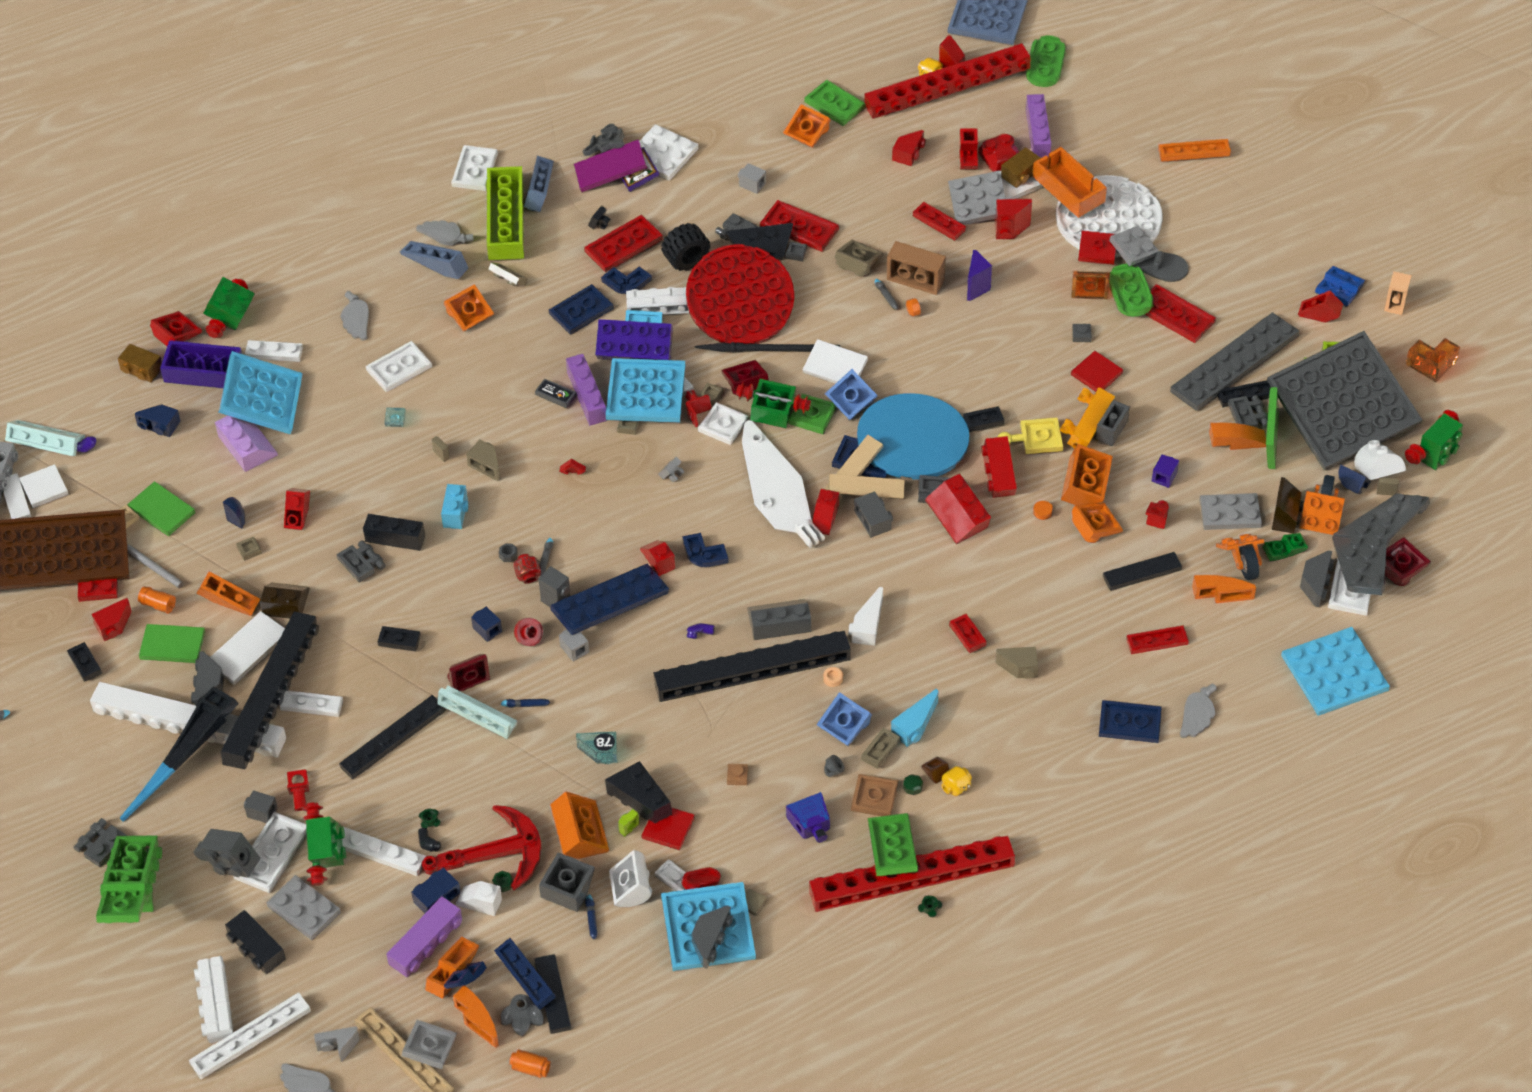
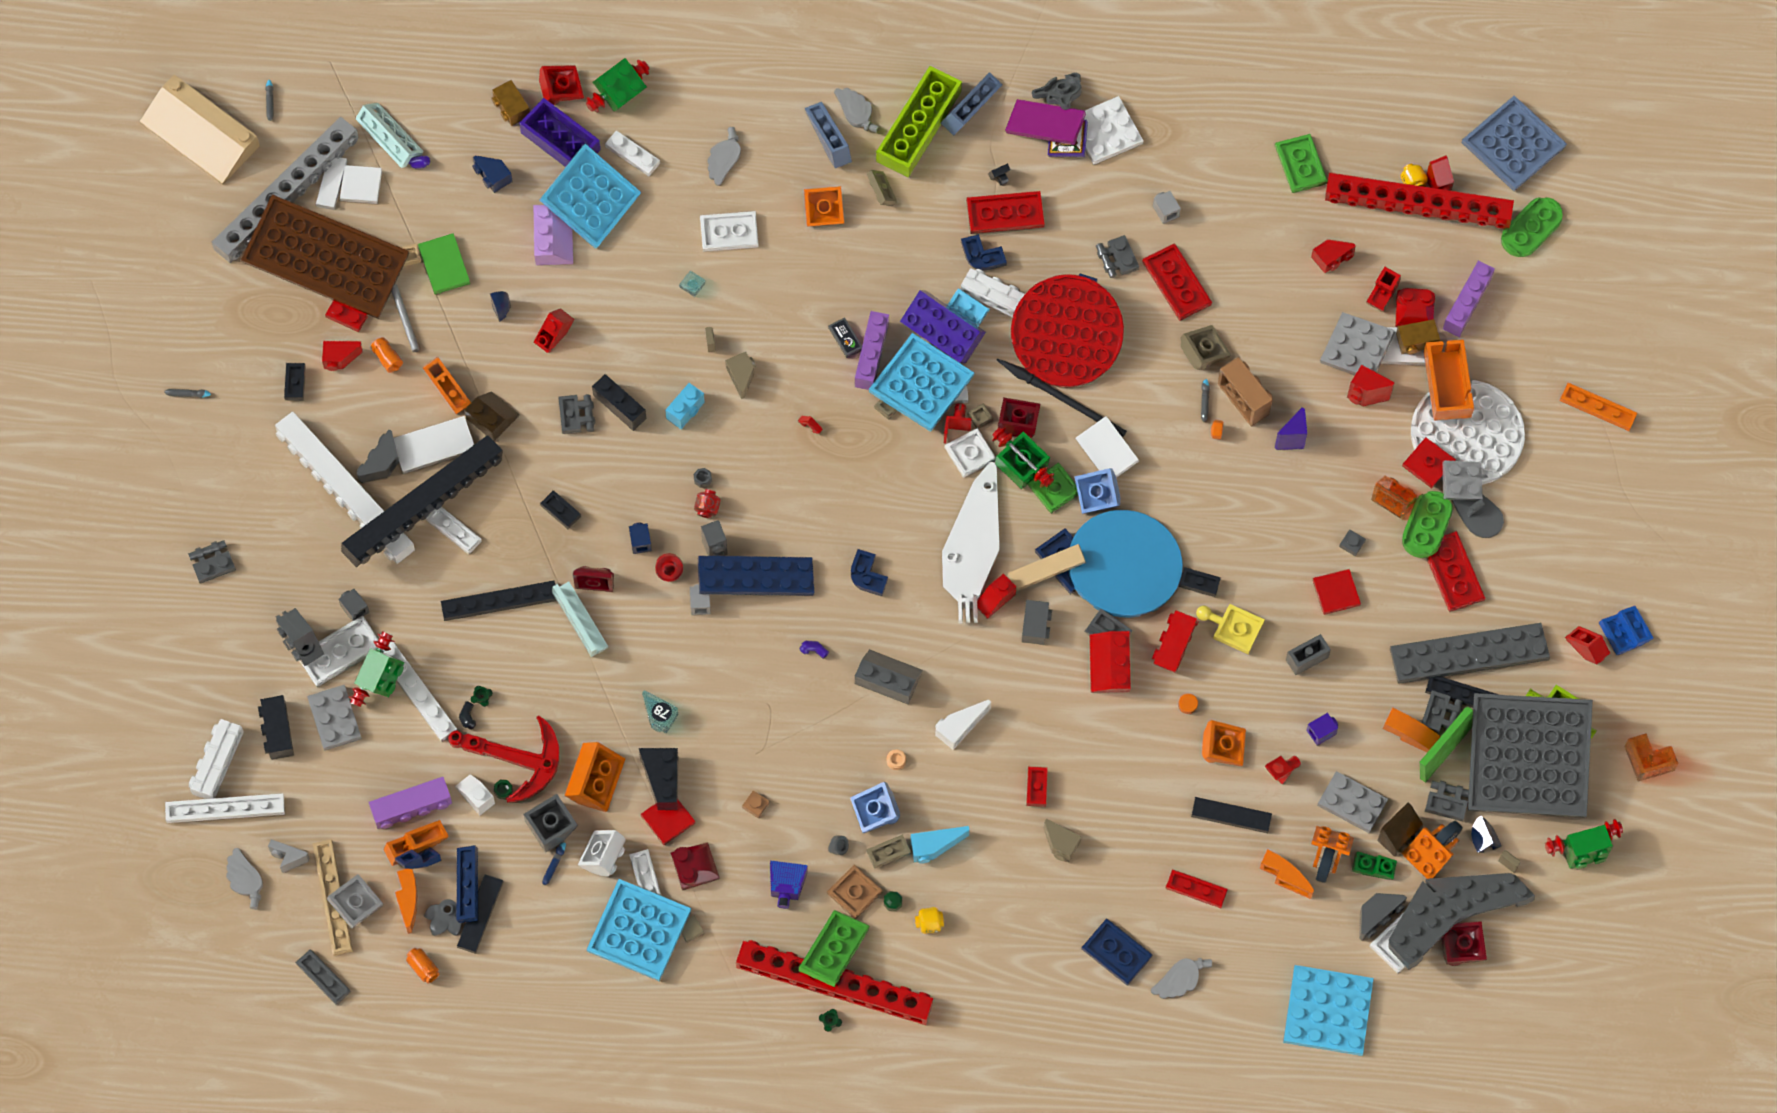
camera: 30 degrees right, 15 degrees up
(129, 879) = (207, 616): bright green wedge -> none
(171, 643) = (375, 404): bright green tile -> none
(203, 723) = (347, 504): black plate -> none
(249, 548) = (492, 346): dark tan tile -> none
(298, 789) = (393, 606): red bracket -> none
(438, 885) = (444, 765): dark blue brick -> none
(472, 167) = (927, 50): white tile -> none
(510, 703) = (626, 632): dark blue piece -> none
(545, 555) = (732, 499): dark grey piece -> none
(581, 309) = (924, 261): dark blue tile -> none
(628, 822) = (636, 796): lime plate -> none
(659, 557) = (825, 556): red slope -> none
(670, 468) = (891, 474): light grey tile -> none
(685, 246) = (1052, 252): black tyre -> none
(701, 878) = (661, 884): red tile -> none
(709, 933) = (630, 941): dark grey slope -> none
(718, 850) = (694, 865): none -> dark red slope
(752, 666) = (833, 710): black brick -> none
(769, 238) = (1127, 283): black wing -> none
(796, 251) = (1155, 308): dark grey tile -> none
(807, 126) = (1254, 178): orange slope -> none
(864, 485) = (1047, 592): tan tile -> none
(935, 769) = (922, 898): reddish brown slope -> none
(939, 221) = (1305, 350): red plate -> none
(1086, 476) = (1246, 695): orange slope -> none
(1088, 423) = (1277, 648): light orange brick -> none
(1304, 474) = (1445, 805): none -> dark grey plate
(1377, 461) = (1517, 833): white brick -> none
(1397, 293) = (1667, 672): light nougat brick -> none

